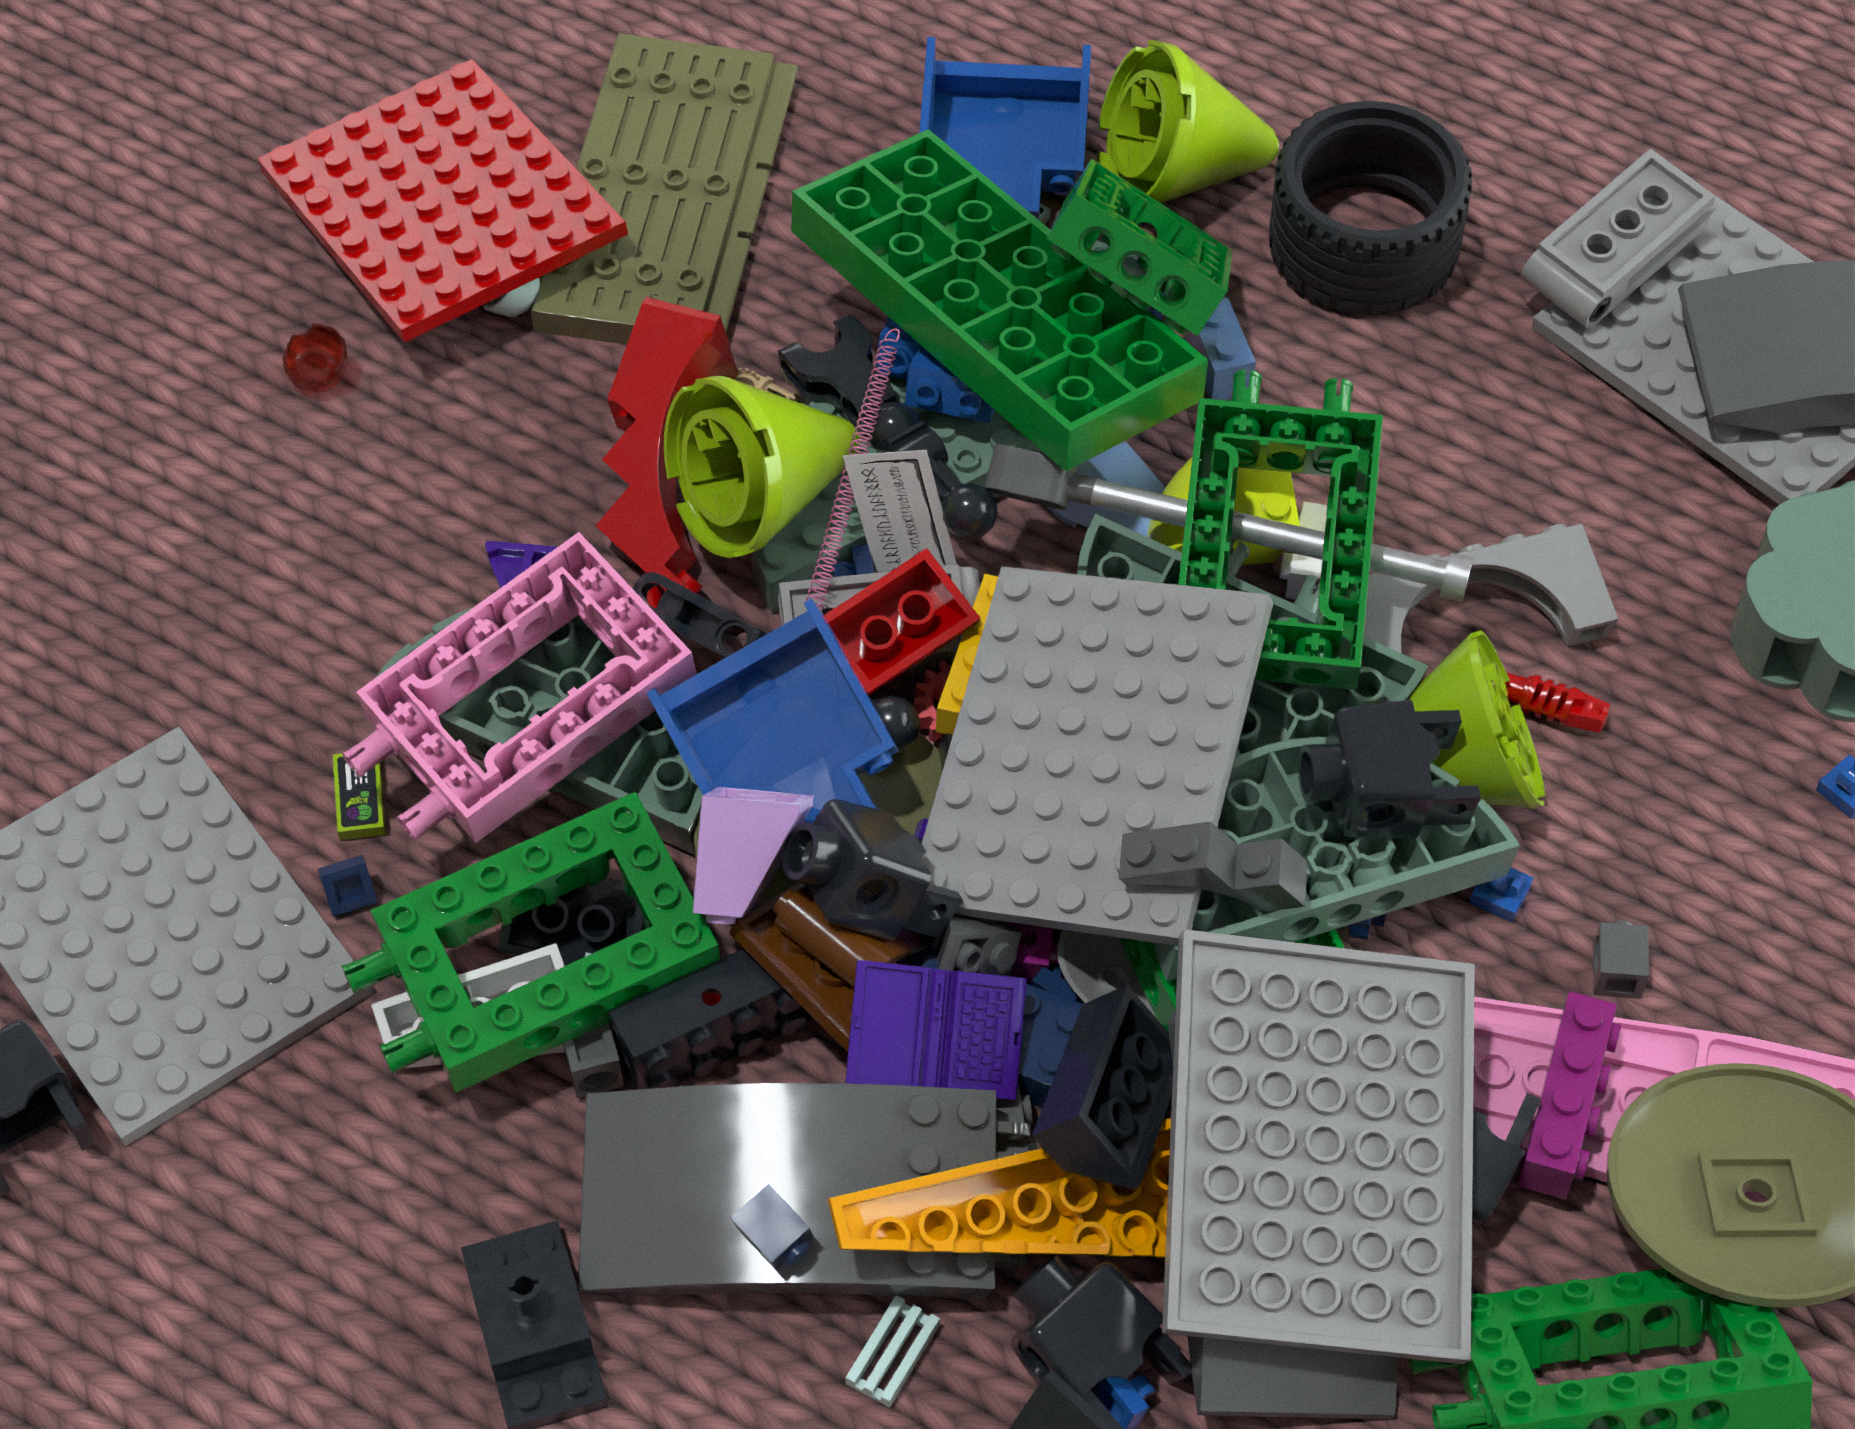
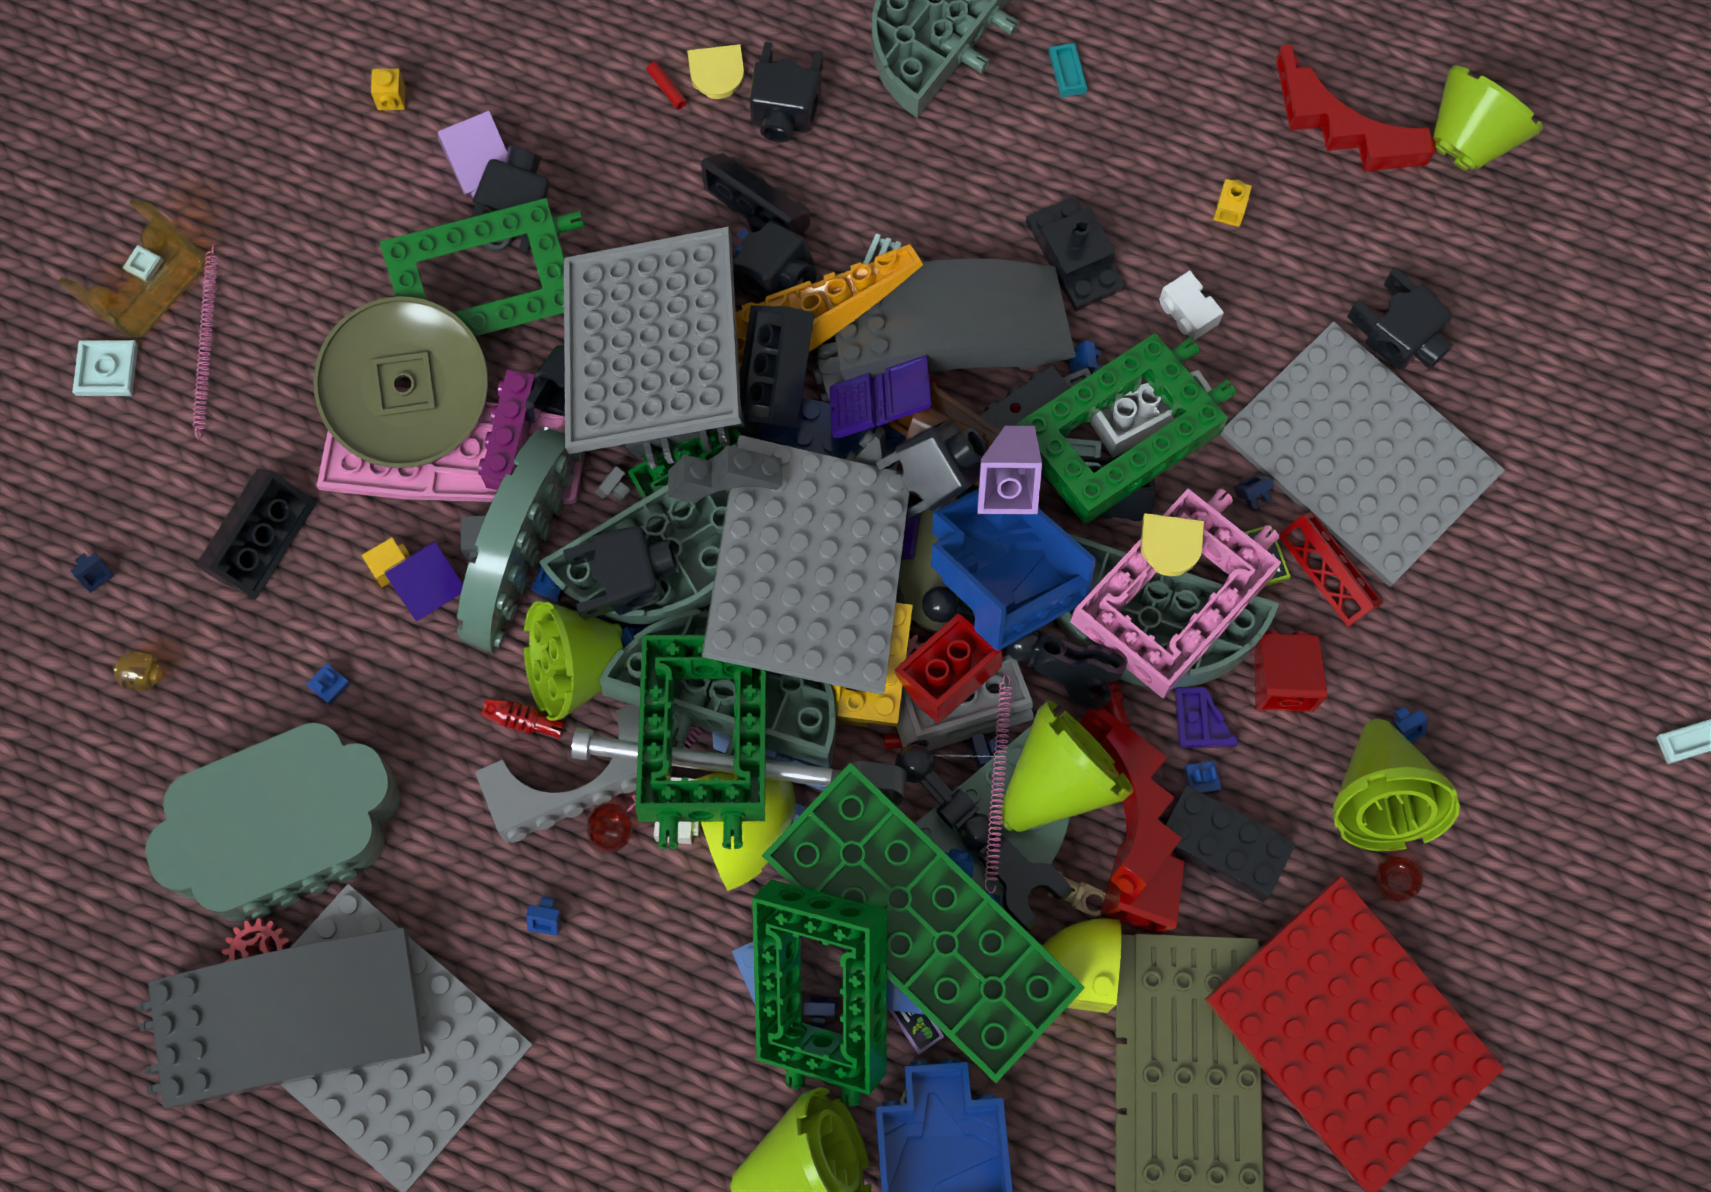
camera: 170 degrees right, 15 degrees up
(224, 1372) = (1232, 202): none -> yellow brick
(229, 535) = (1410, 725): none -> blue tile
(253, 760) = (1339, 563): none -> red fence
(290, 442) = (1392, 793): none -> lime cone
(359, 1191) = (1189, 307): none -> white brick
(379, 604) = (1289, 672): none -> red slope
(518, 725) = (1171, 543): none -> light yellow tile
(538, 423) = (1228, 844): none -> black brick
(547, 517) = (1203, 777): none -> blue tile
(564, 1122) = (1085, 357): none -> blue tile
(773, 1228) = (952, 271): brick -> none
(782, 296) = (1093, 957): none -> neon yellow brick
(1375, 148) = (604, 1072): black tyre -> none
(1420, 532) = (609, 827): none -> clear red hair
(1515, 447) = (544, 917): none -> blue tile
(1549, 912) = (512, 537): none -> sand green brick
(1619, 238) = (489, 1050): light grey hinge -> none
(1705, 897) = (424, 580): none -> dark purple tile
(1767, 939) = (384, 557): none -> yellow brick

